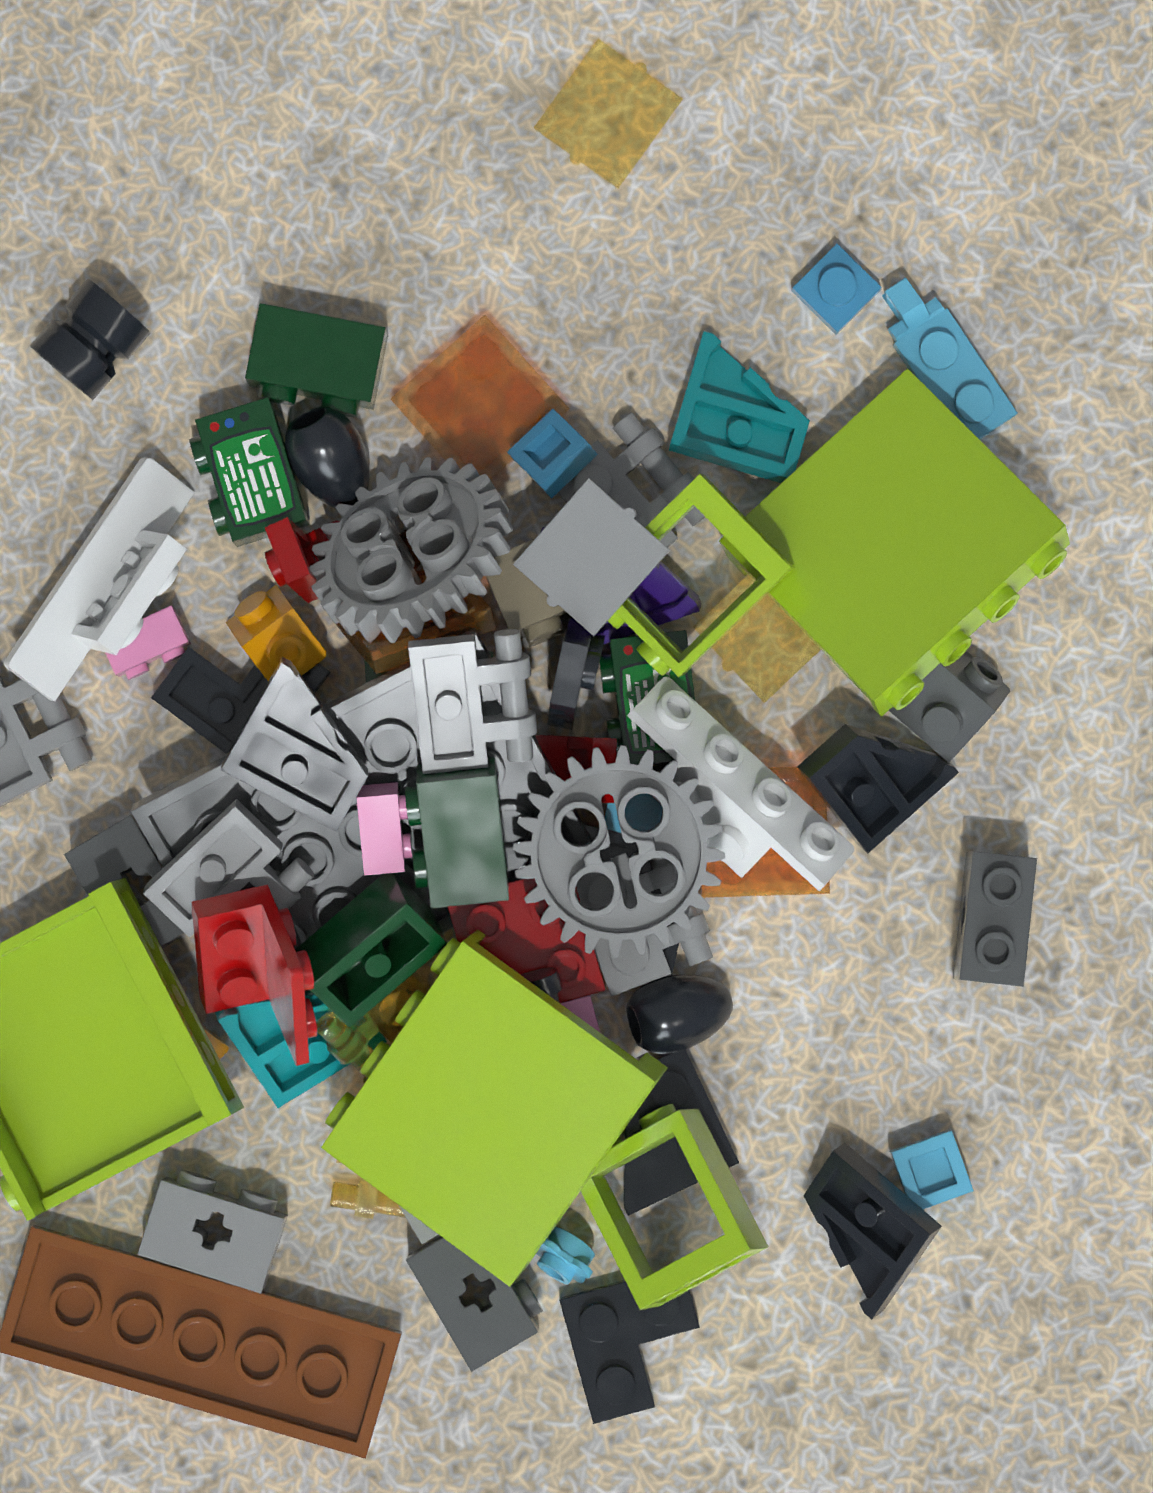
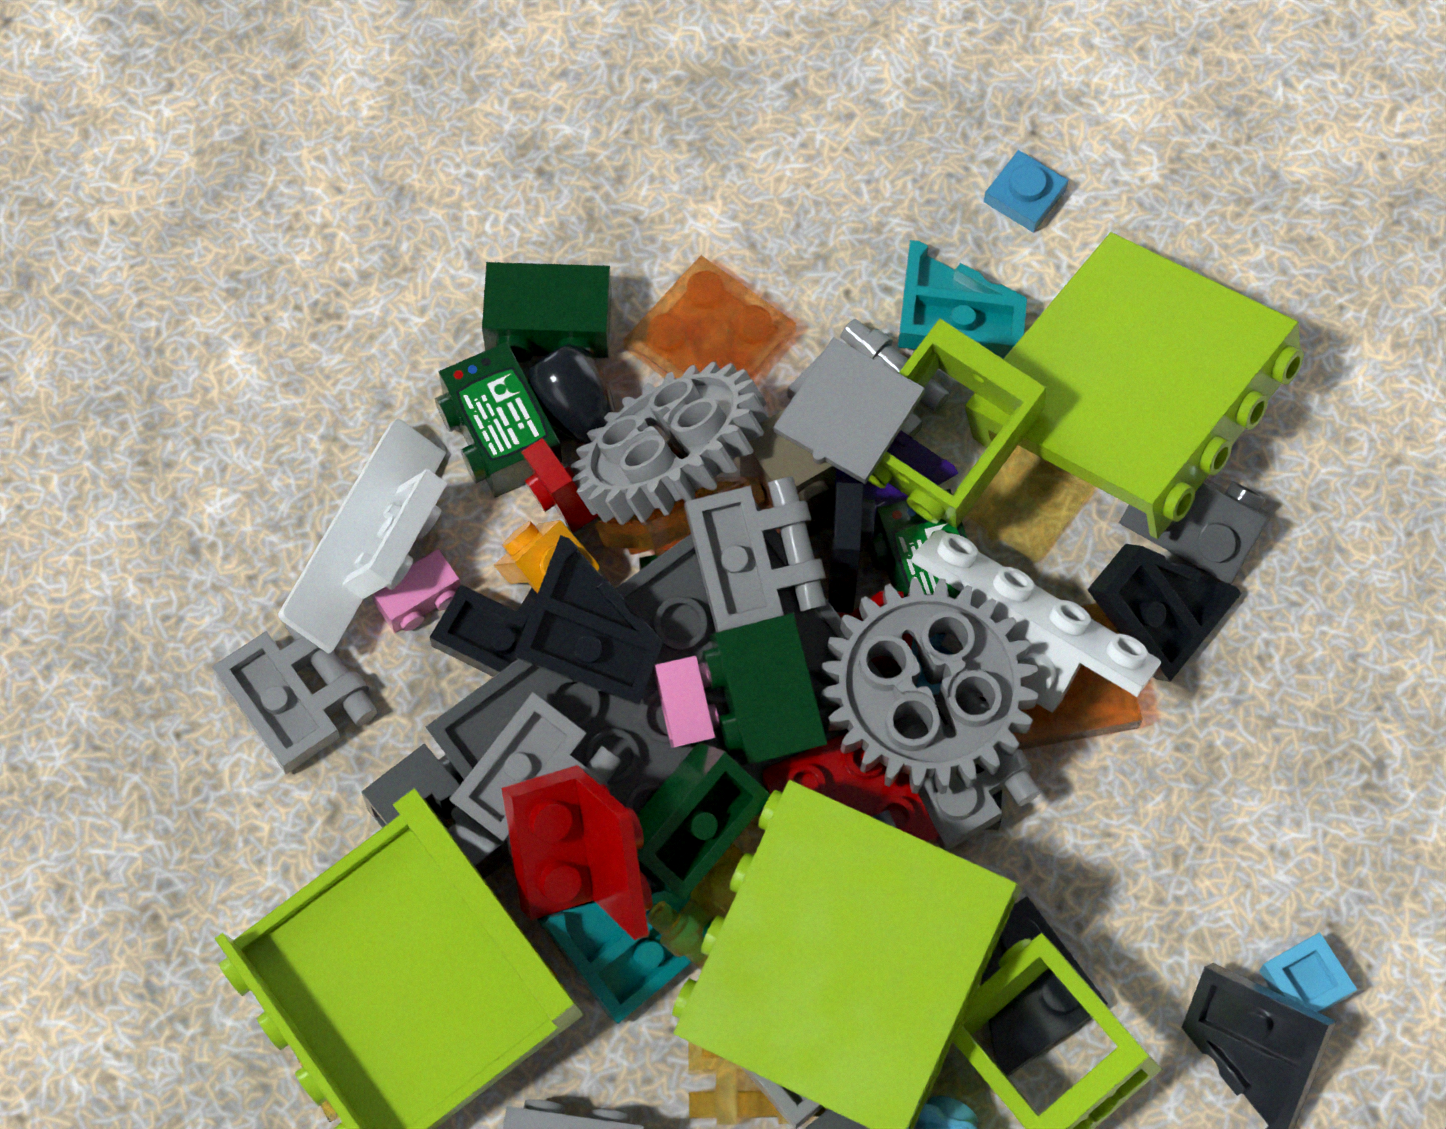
camera: 10 degrees left, 20 degrees down
(90, 339) = (331, 317): black wheel -> none
(552, 453) = (787, 356): dark azure plate -> none
(608, 114) = (784, 80): clear yellow piece -> none
(677, 1012) = (1021, 851): black animal -> none
(946, 360) = (1133, 218): medium azure hinge -> none
(994, 918) = (1312, 717): dark grey brick -> none

